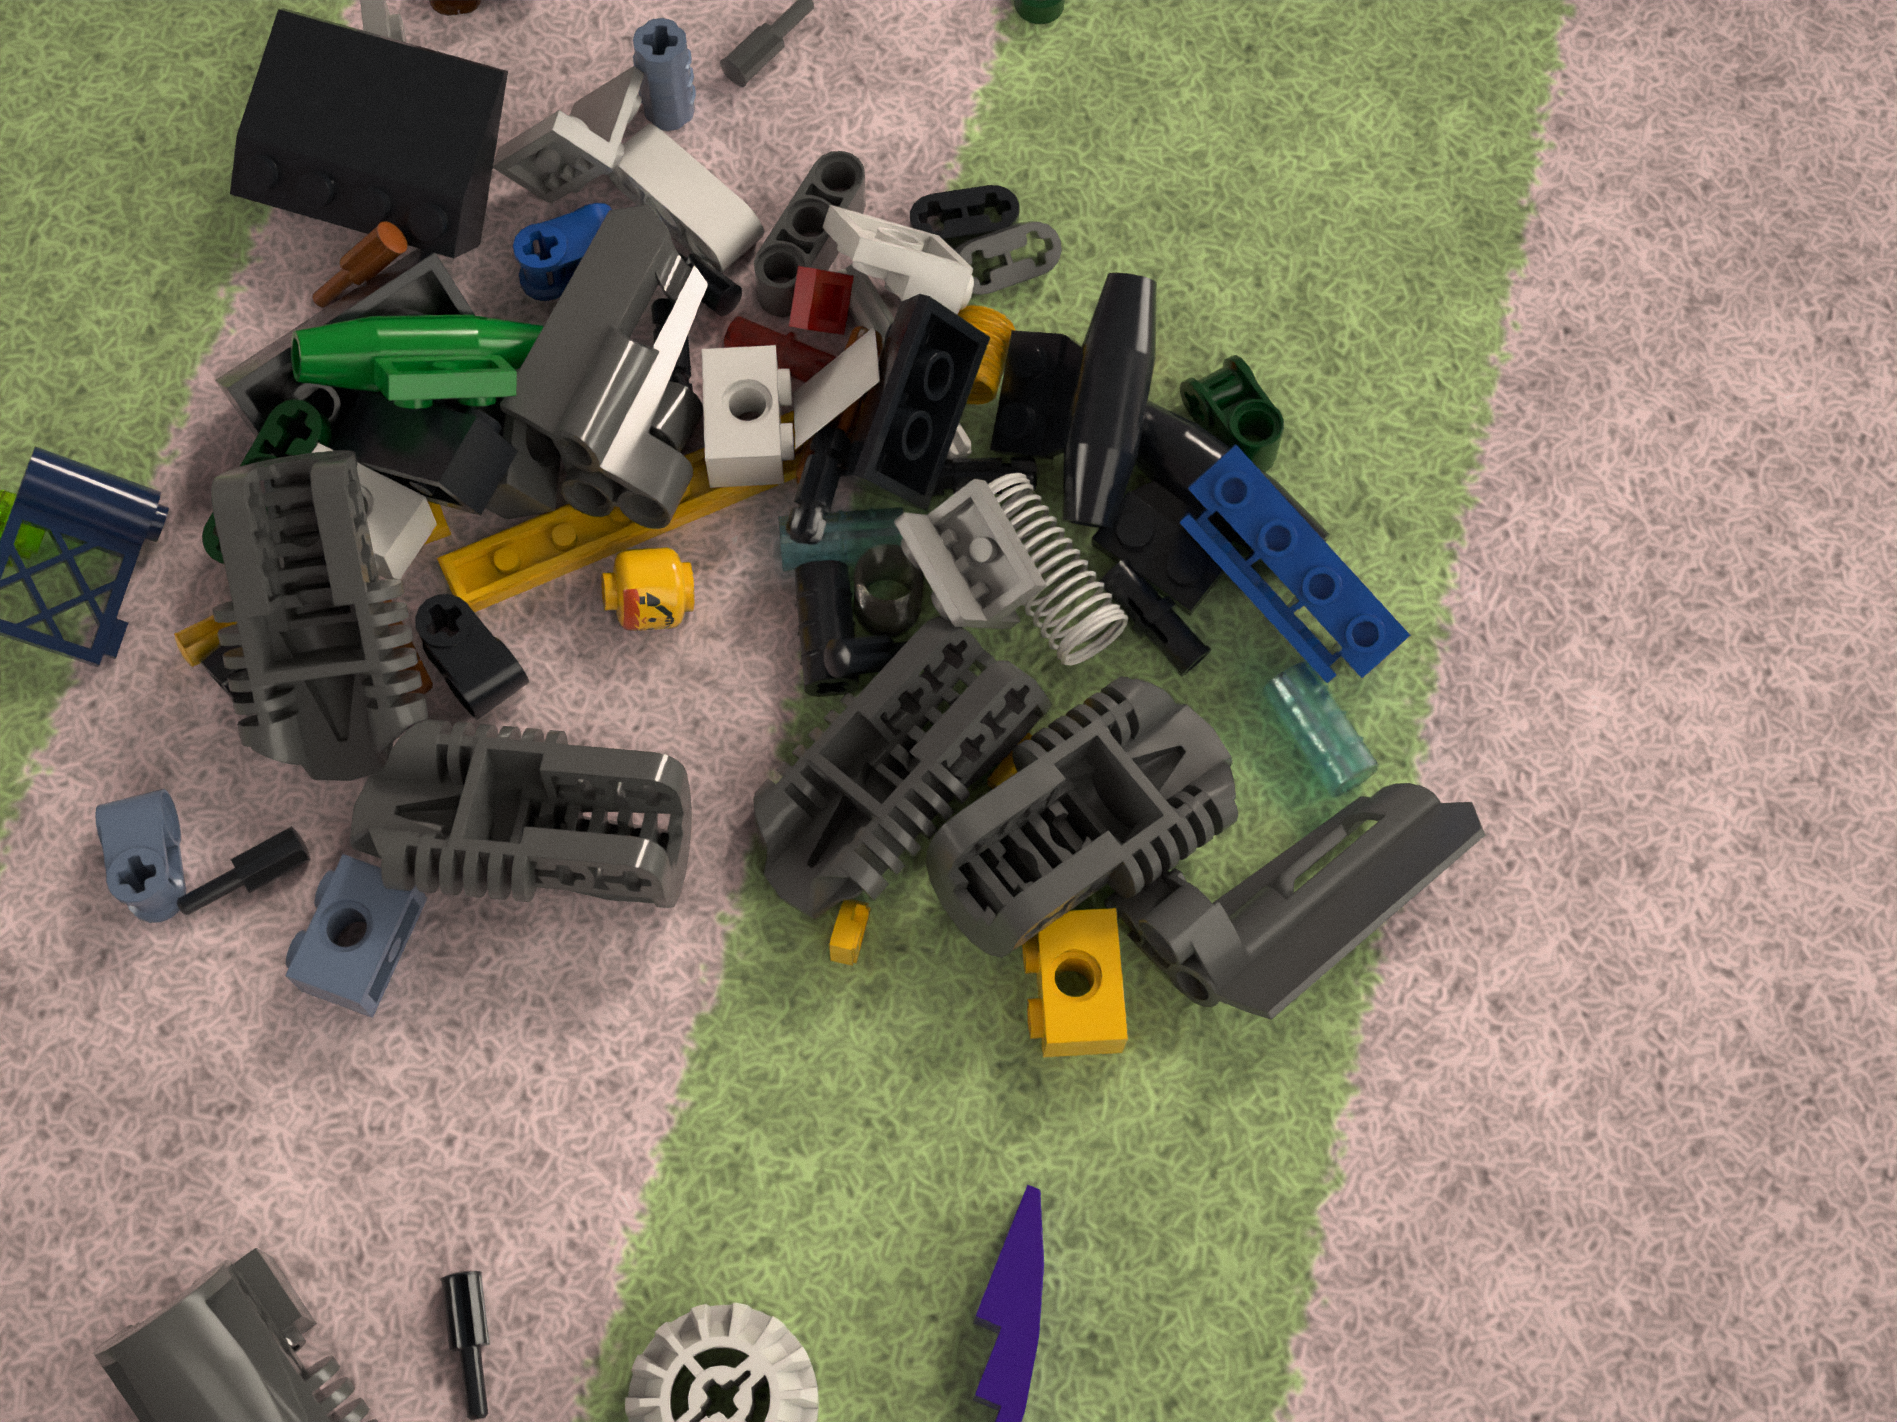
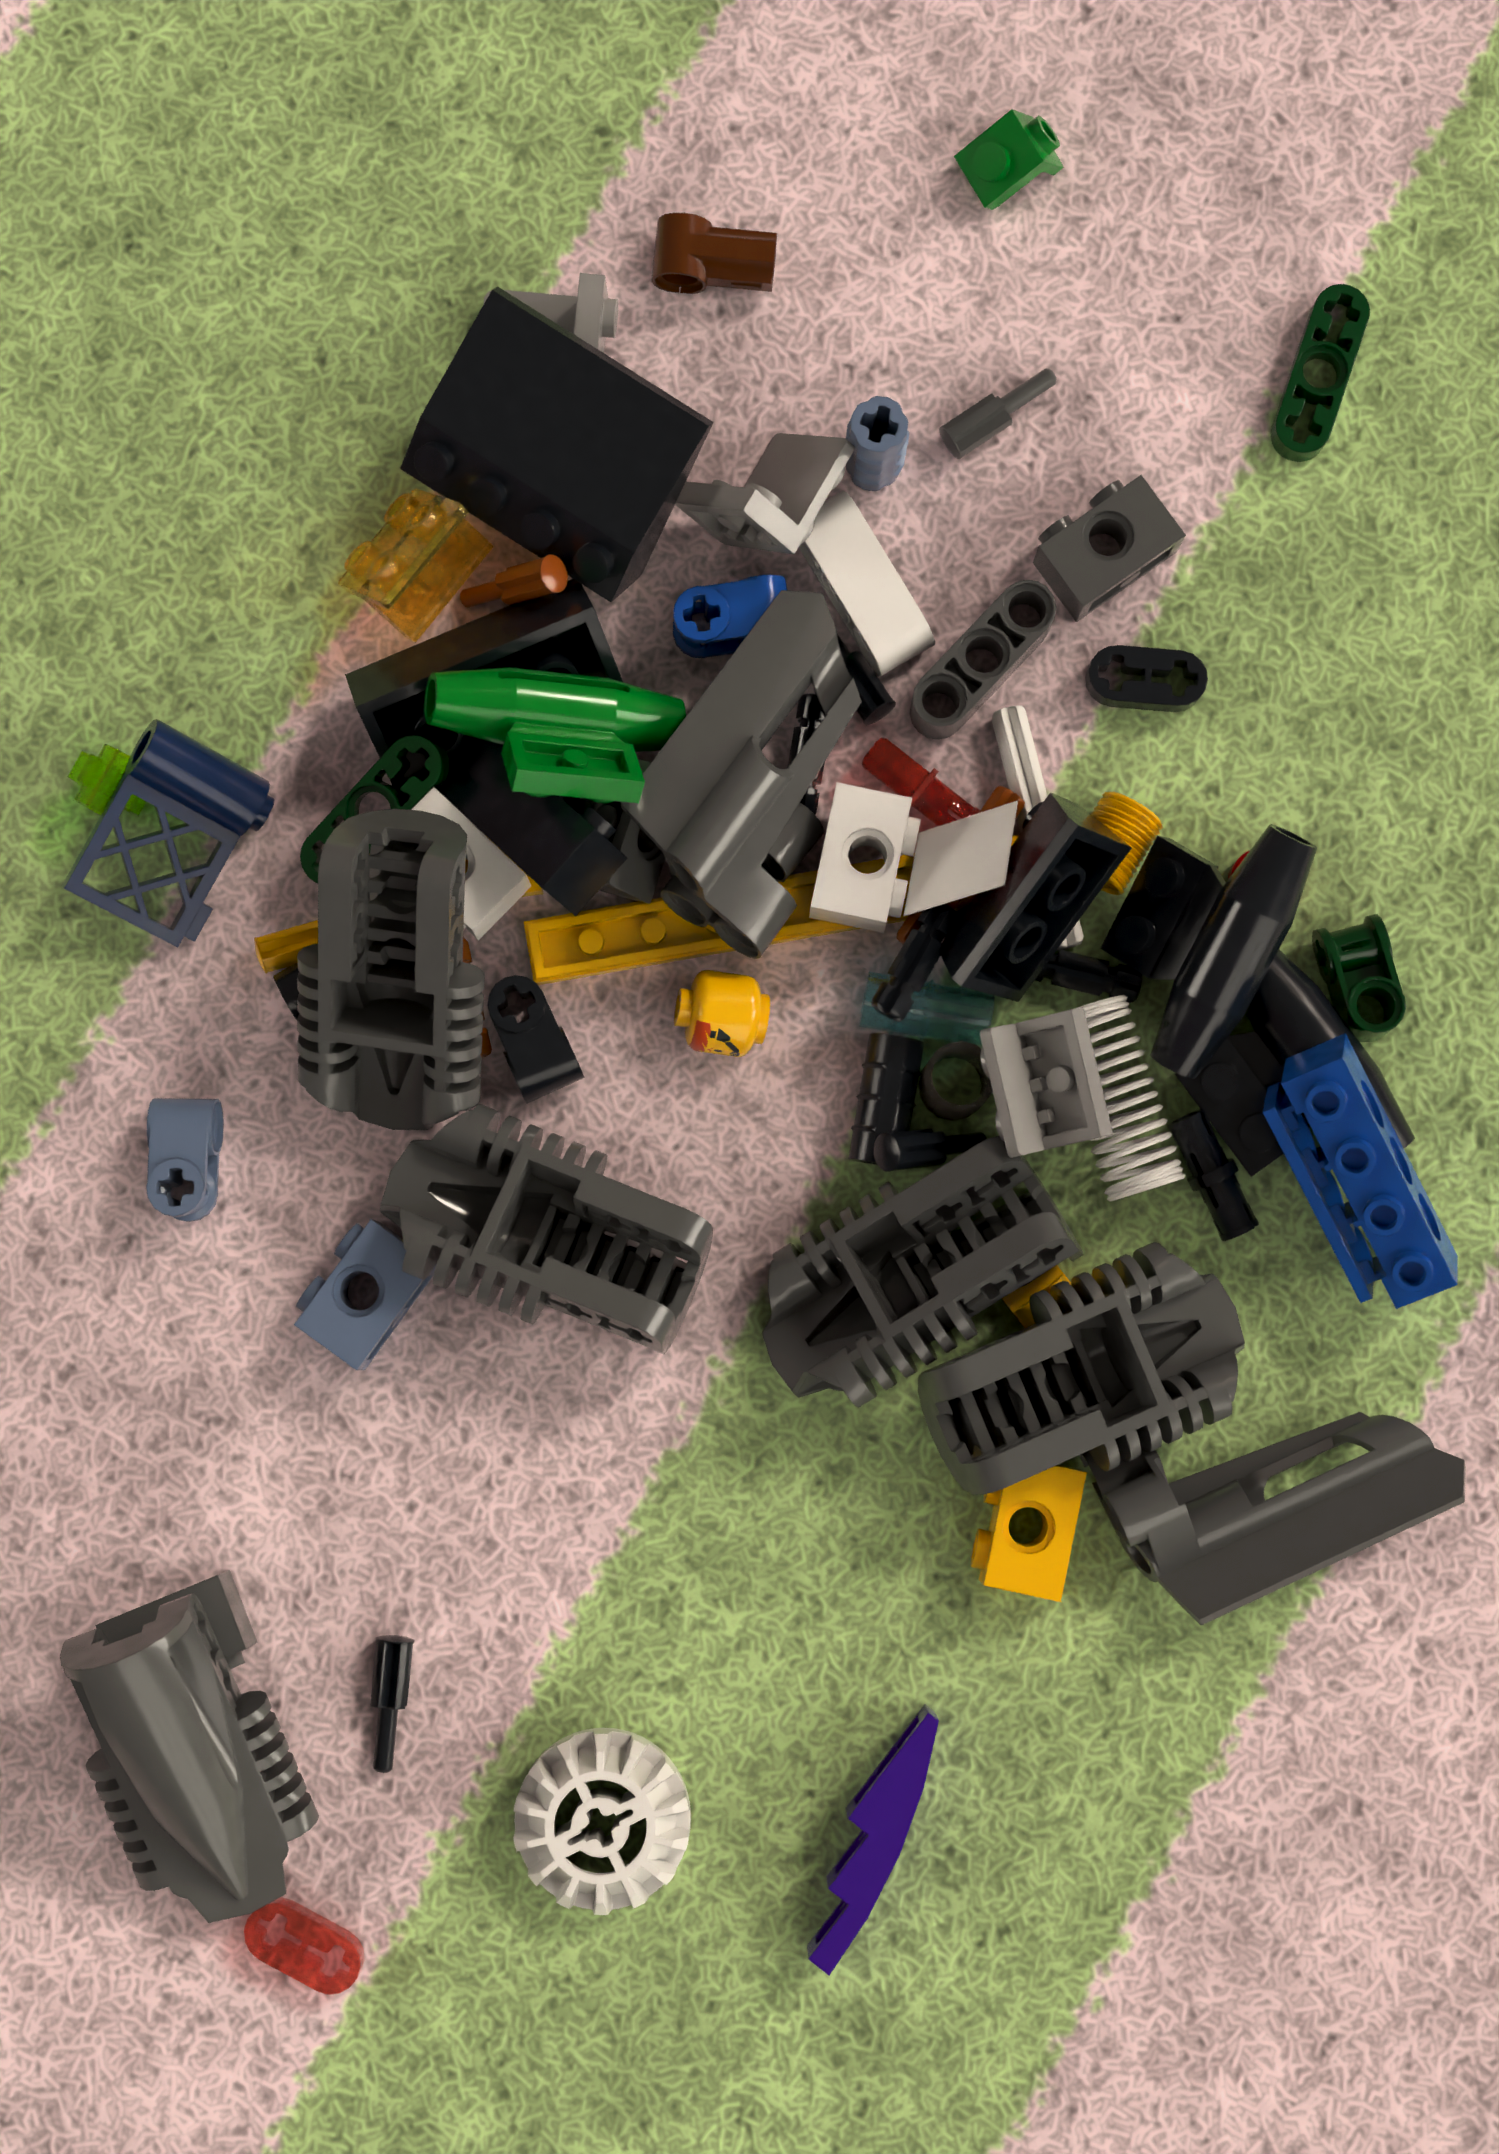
camera: 20 degrees right, 15 degrees up
(252, 868) = (282, 1197): black axle -> none
(265, 273) = (415, 561): none -> clear yellow bracket
(821, 300) = (972, 744): red tile -> none
(849, 931) = (827, 1416): yellow tile -> none
(903, 257) = (1068, 728): white plate -> none
(907, 88) = (1130, 516): none -> dark grey brick
(1000, 244) = (1176, 739): dark grey beam -> none
(1320, 729) = (1340, 1338): clear light blue axle -> none

